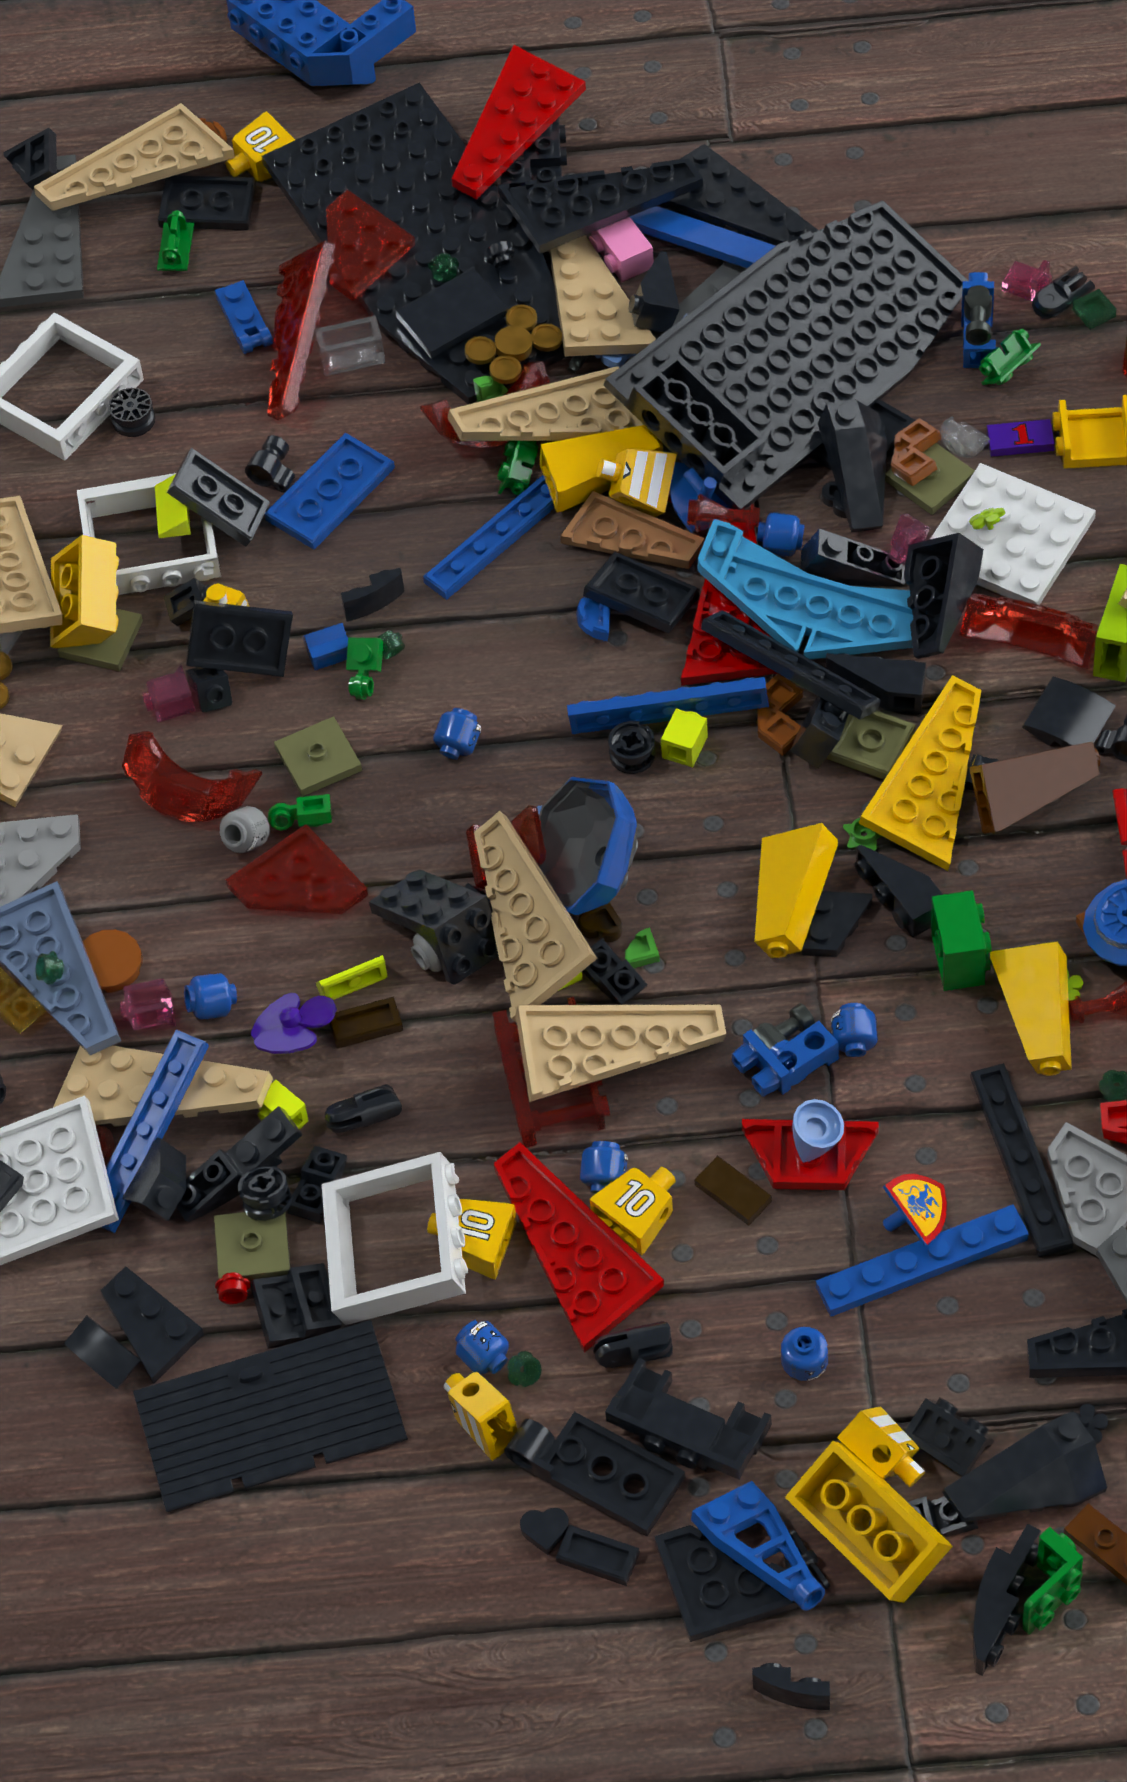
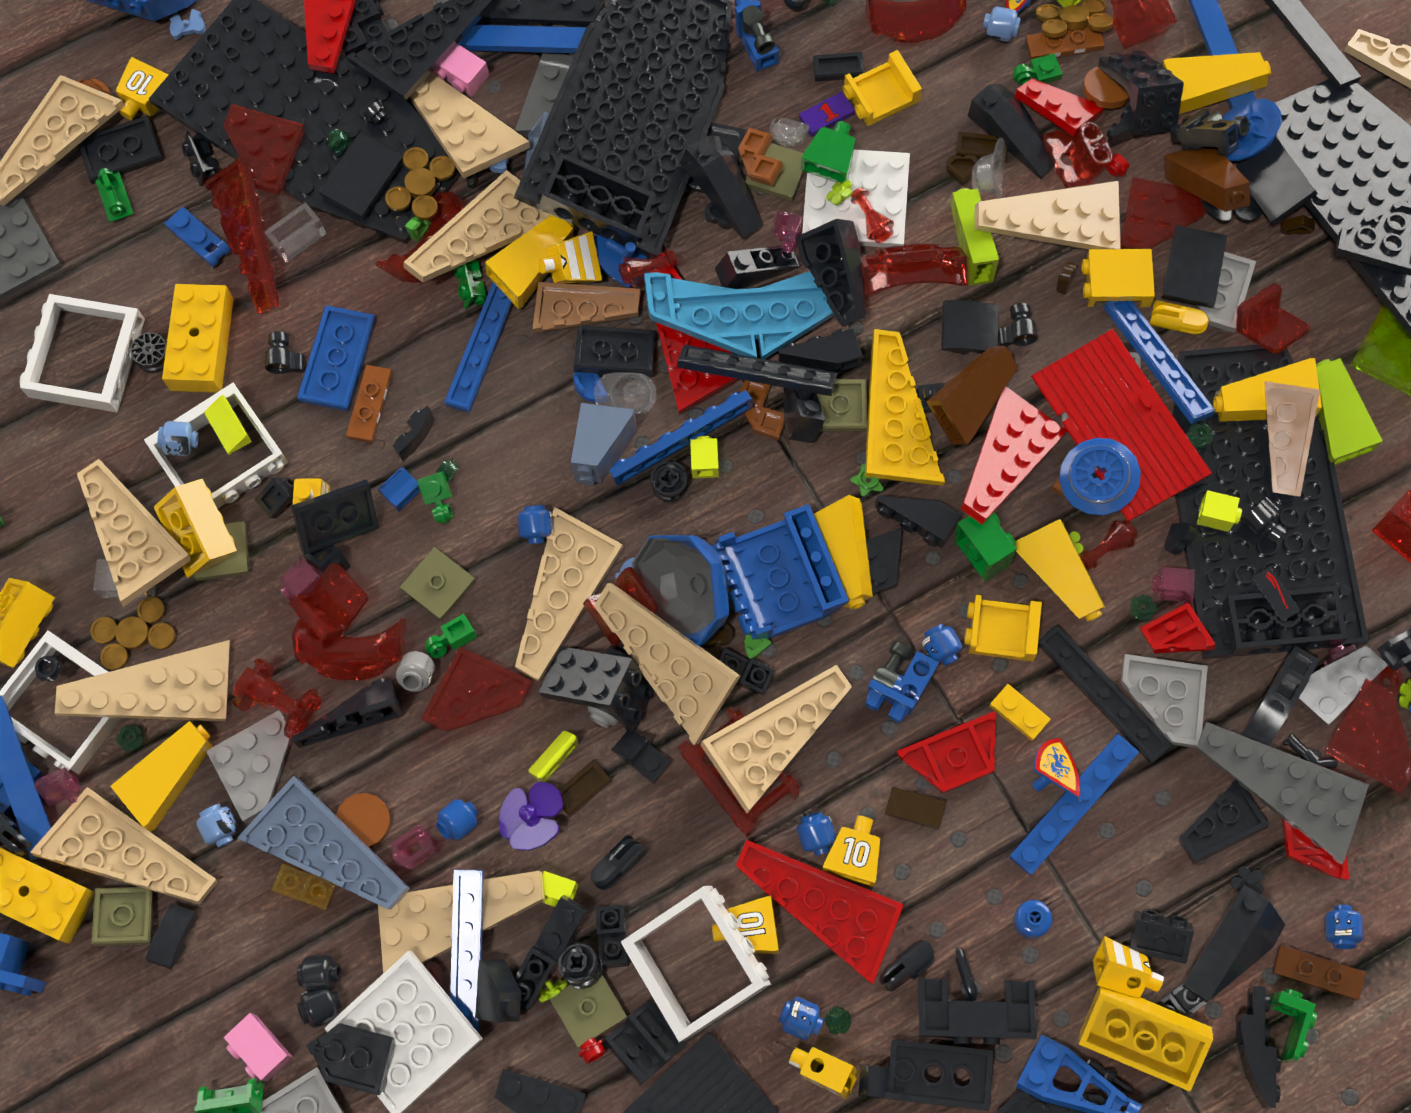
camera: 25 degrees left, 15 degrees up
(49, 967) = (326, 855): clear green plate -> none
(65, 777) = (257, 687): none -> clear red piece
(111, 498) = (177, 438): none -> medium blue head
(161, 848) = (364, 709): none -> black wedge
(189, 411) = (198, 338): none -> yellow brick
(190, 729) = (331, 603): none -> clear red bracket
(218, 497) = (258, 403): black tile -> none
(222, 1208) = (552, 990): none -> lime plant
(287, 229) = (196, 149): none -> black hinge
(340, 549) = (369, 404): none -> dark orange plate
(342, 105) = (179, 28): none -> medium blue piece
(450, 1016) = (641, 756): none -> black slope
(466, 794) = (568, 574): none -> tan wing
(573, 669) = (600, 441): none -> sand blue slope
(627, 635) = (626, 391): none -> clear piece
(656, 299) = (509, 105): black slope -> none
(697, 1393) = (967, 984): none -> black piece
(701, 887) = (781, 575): none -> blue slope
(781, 534) = (695, 263): blue head -> none
(816, 1128) = (959, 739): medium blue piece -> none
(910, 1139) = (1020, 712): none -> yellow plate
(936, 1043) = (1003, 629): none -> yellow panel
(996, 473) = (830, 153): none -> green torso
(1000, 365) = (787, 61): green hinge -> none
(1012, 567) = (877, 225): none -> clear red piece
(1044, 852) = (1010, 451): none -> wing
(1049, 389) = (836, 66): none -> black tile

